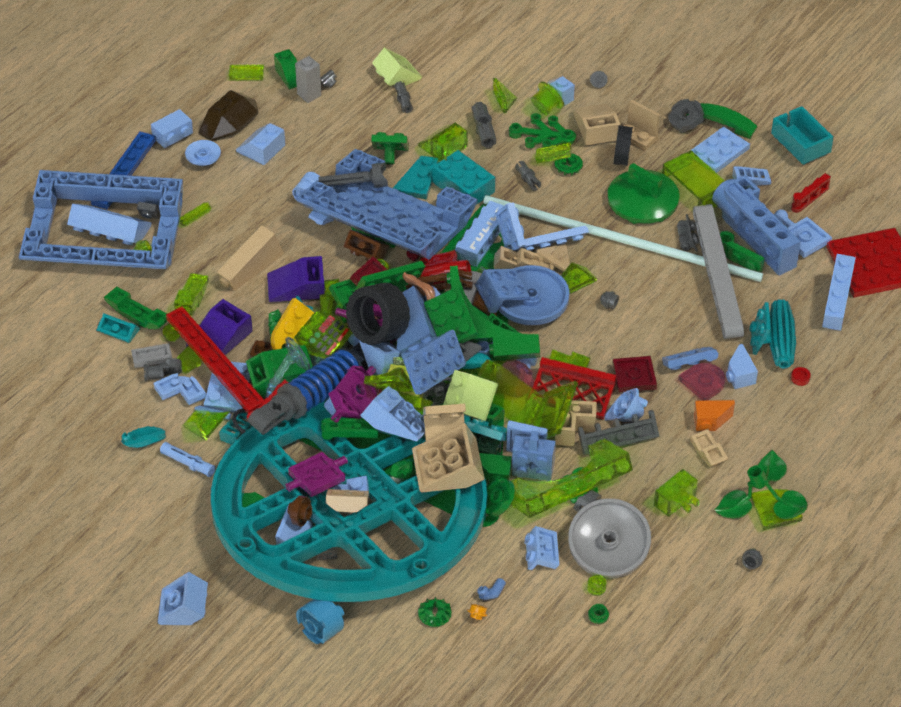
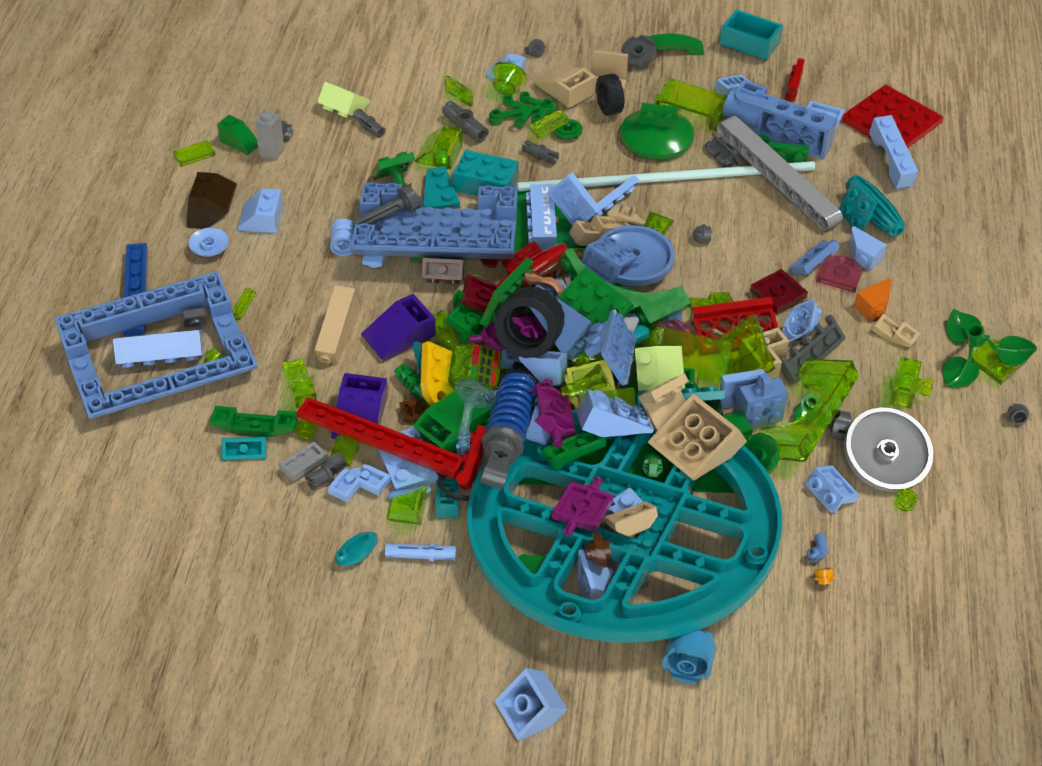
camera: 30 degrees left, 0 degrees up
(172, 128) = (160, 229): light blue brick -> none
(443, 612) = (781, 603): green gear -> none
(598, 609) = (933, 522): green plate -> none
(721, 149) = (688, 68): light blue plate -> none
(800, 376) = (915, 237): red tile -> none

